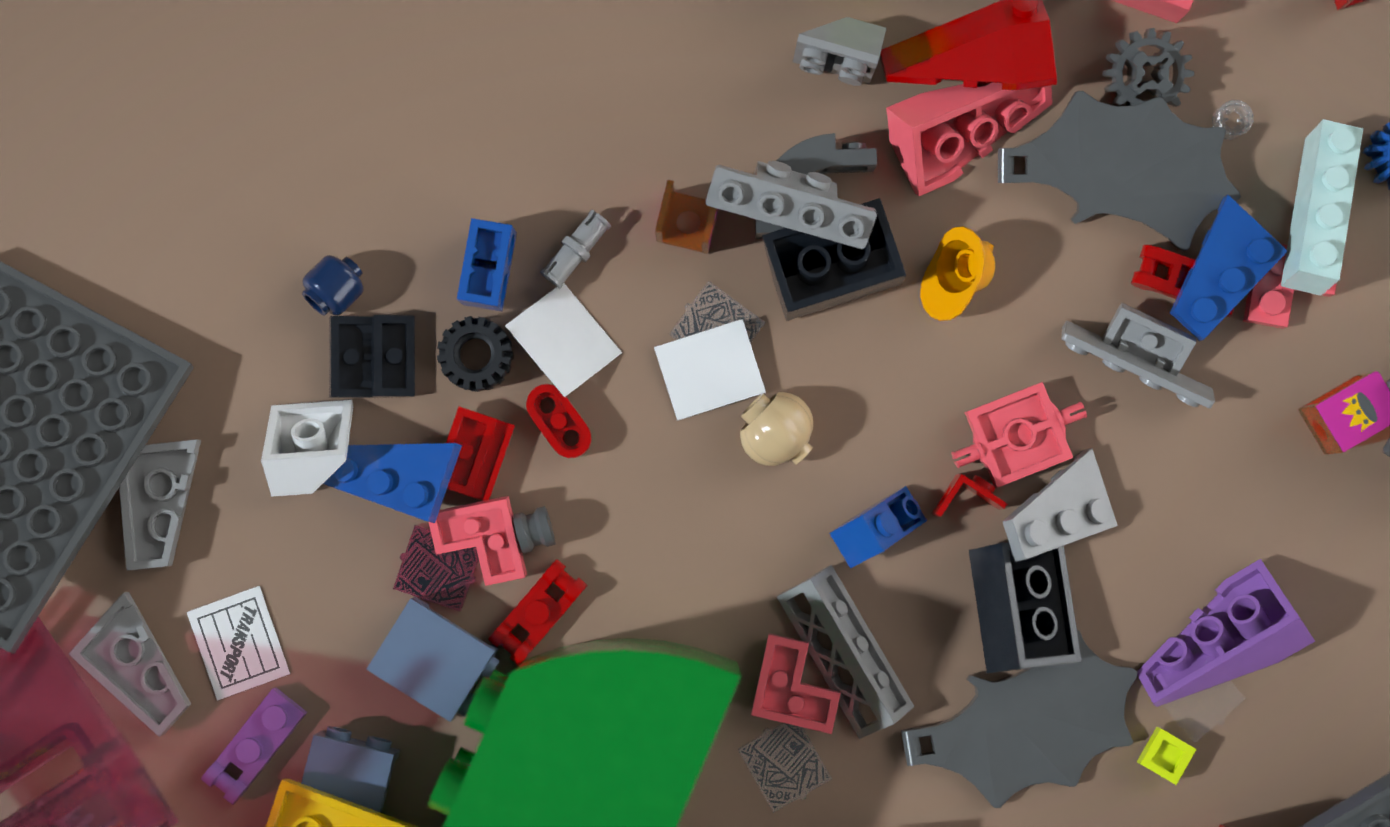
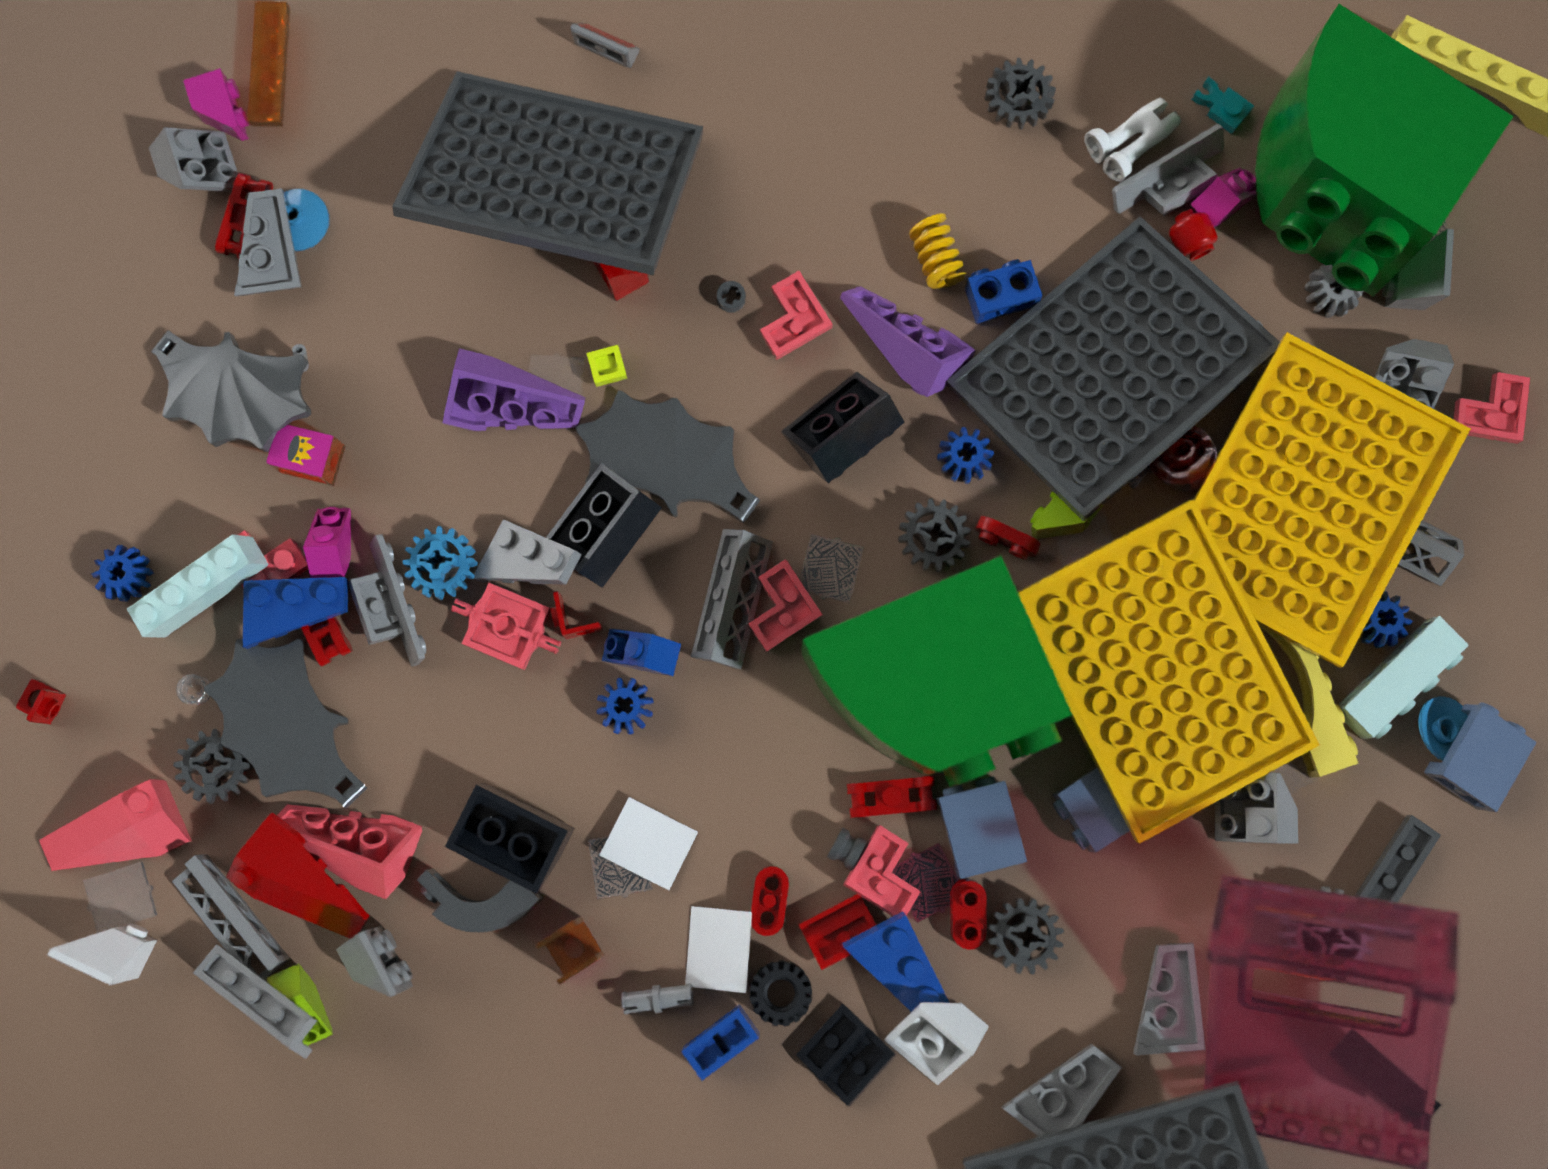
camera: 135 degrees left, 5 degrees down
(238, 643) = (1093, 955): white sticker -> none
(255, 744) = (1138, 882): medium lavender plate -> none
(303, 588) = (1029, 920): none -> dark grey gear
(332, 285) = (828, 1124): dark blue head -> none
(376, 573) = (968, 915): none -> red plate
(777, 429) = (643, 767): tan plant -> none
(791, 201) = (498, 897): light grey bracket -> none
(837, 455) = (622, 717): none -> blue gear
(956, 273) = (446, 757): light orange piece -> none
(1120, 423) = (454, 564): none -> dark azure gear
(1248, 355) = (329, 543): none -> dark pink slope

